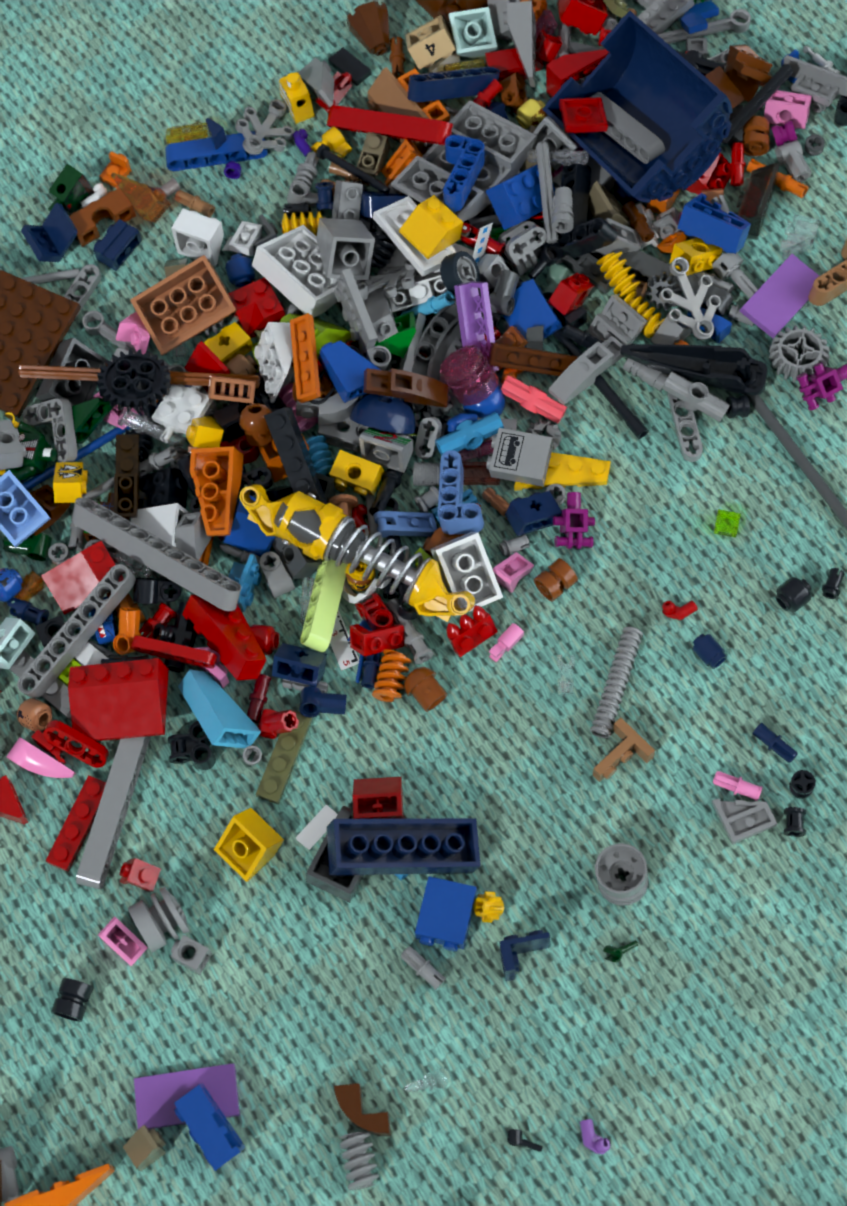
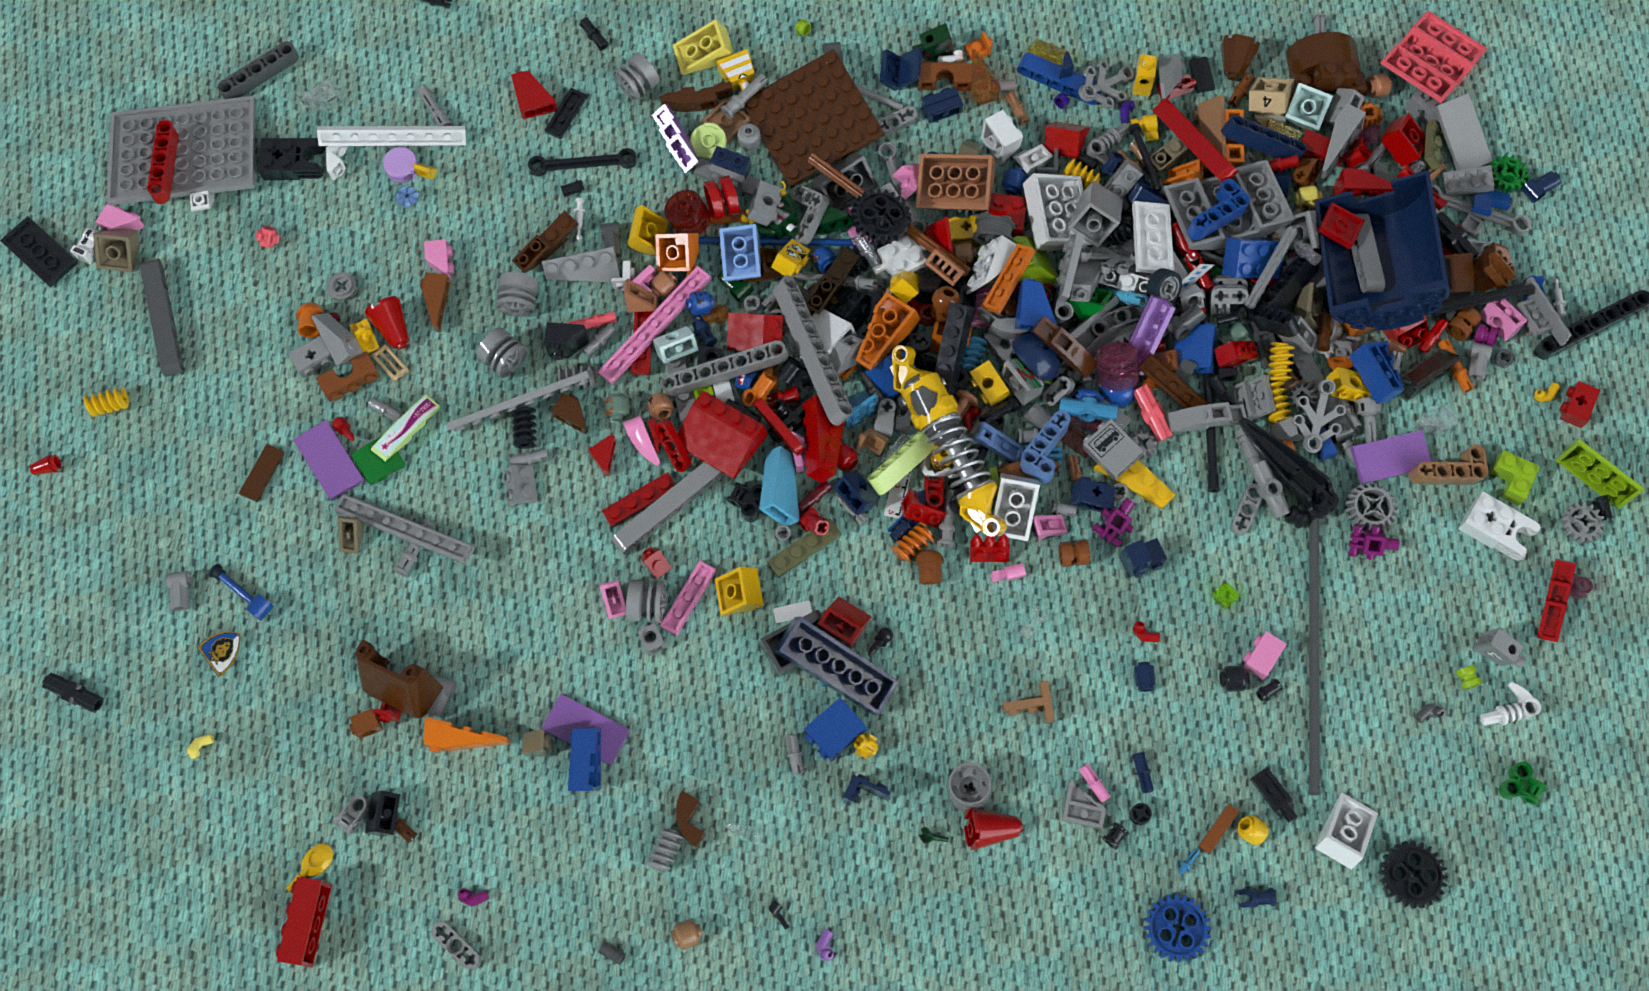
camera: 30 degrees right, 5 degrees up
(72, 998) = (556, 615): black wheel -> none
(102, 463) = (823, 258): none -> blue head
(199, 887) = (688, 598): none -> bright pink tile
(251, 322) = (992, 227): none -> dark grey wheel
(264, 200) = (1065, 138): none -> red slope
(279, 605) = (872, 441): none -> medium nougat bracket
(314, 702) = (849, 525): dark blue piece -> none
(427, 788) = (884, 636): none -> black bar
(432, 227) = (1167, 240): yellow slope -> none
(562, 215) = (1269, 292): light grey axle -> none
(616, 682) = (1064, 653): light grey piece -> none
(622, 540) = (1142, 557): none -> dark blue brick
(669, 901) = (989, 828): none -> red cone
(804, 553) = (1264, 655): none -> bright pink brick

